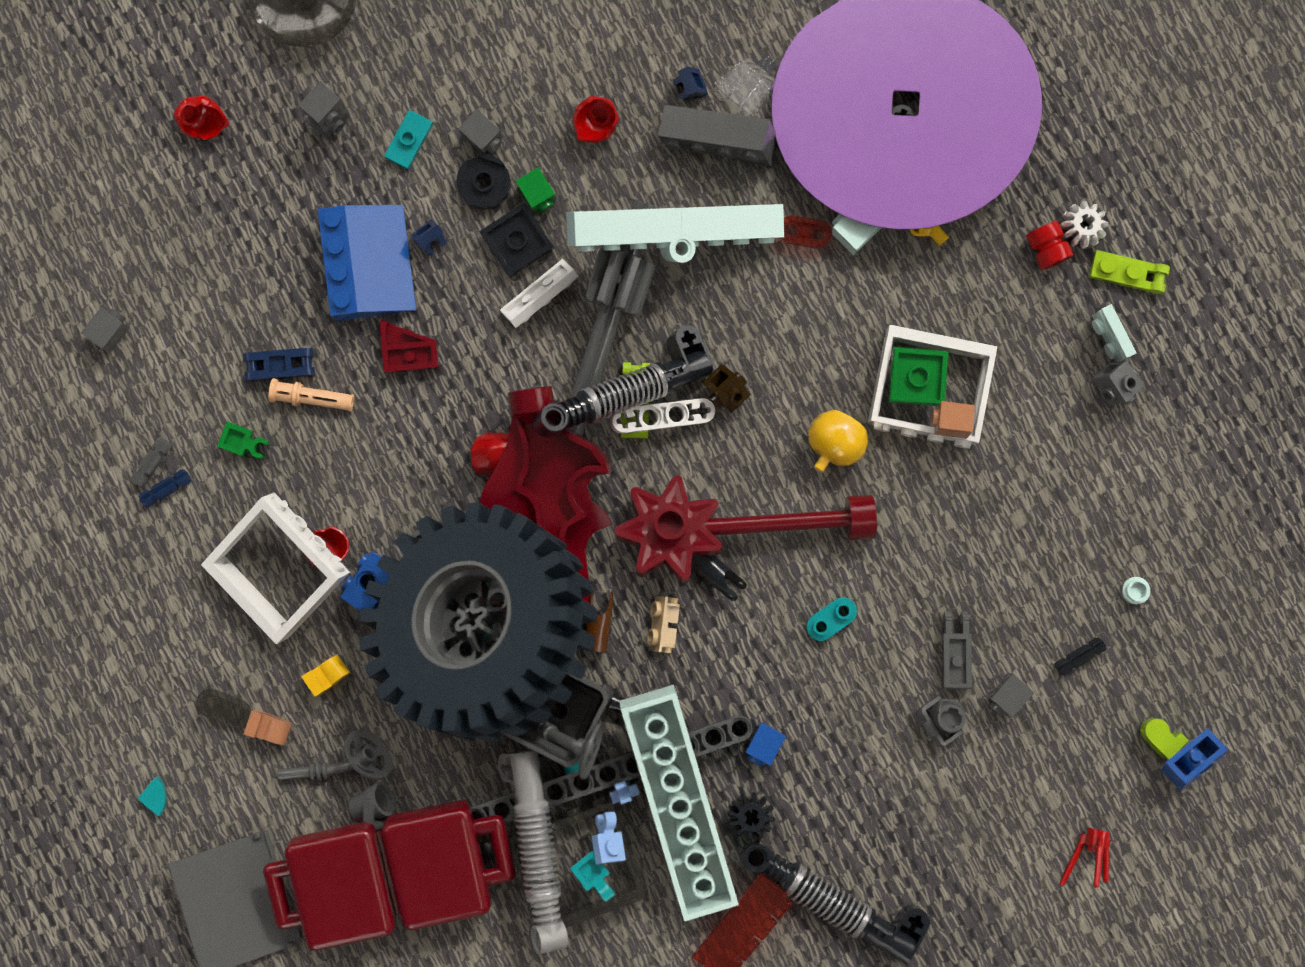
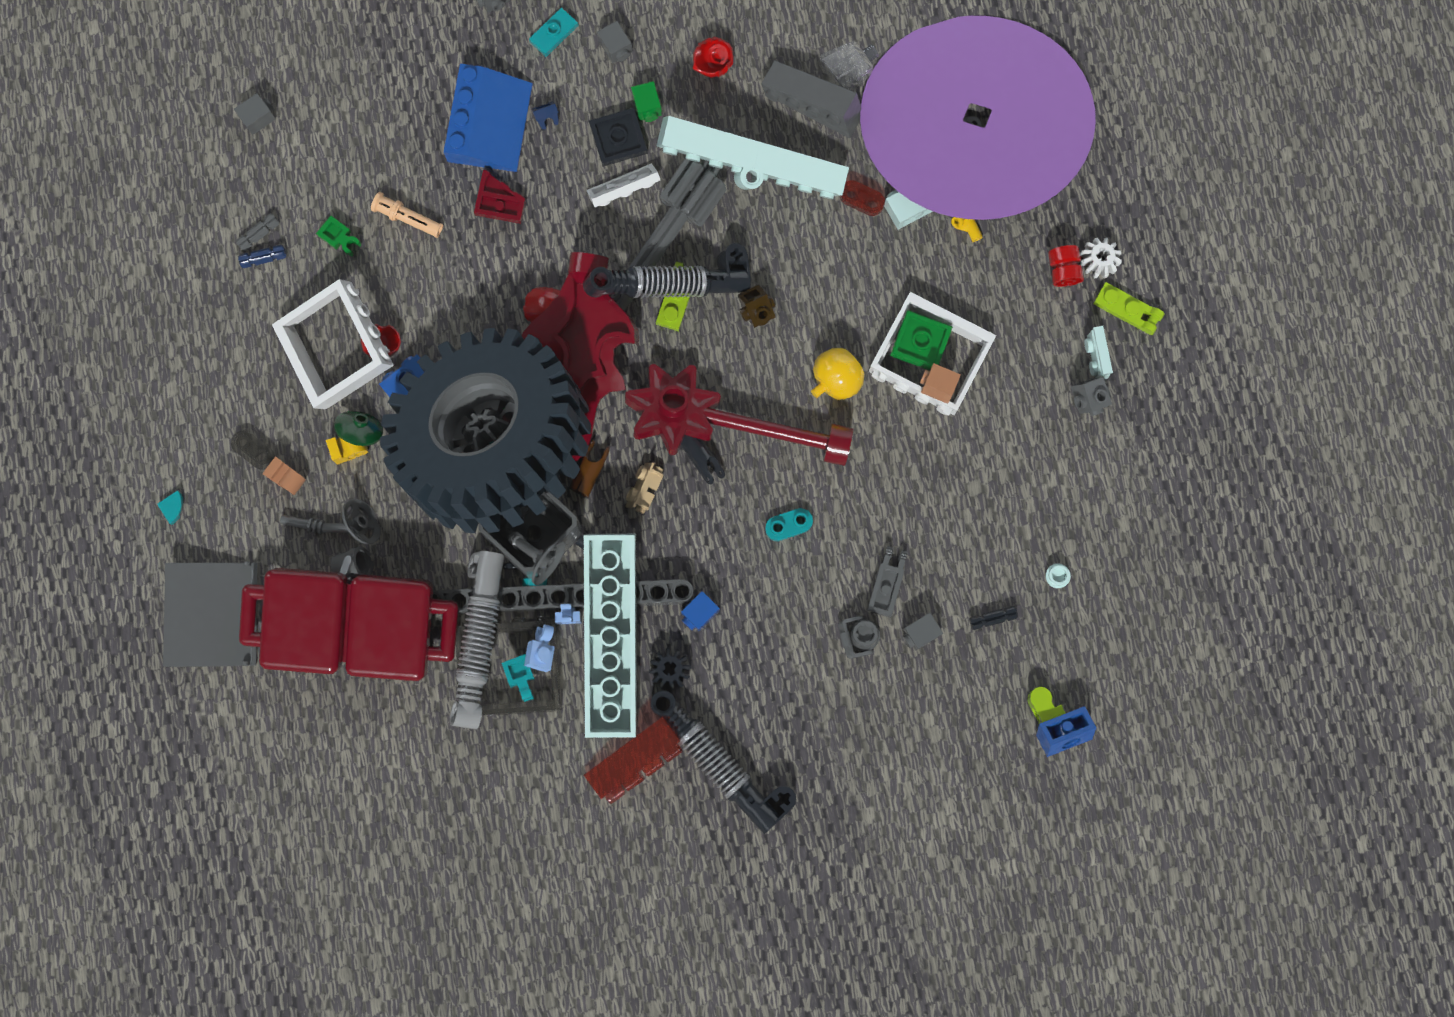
camera: 15 degrees right, 5 degrees down
(278, 364) = (388, 182): dark blue plate -> none
(332, 651) = (358, 428): none -> dark green dish
(491, 195) = (602, 71): black plate -> none
(662, 416) = (695, 313): white beam -> none
(693, 83) = (803, 51): dark blue tile -> none
(1097, 842) = (962, 780): red plant -> none

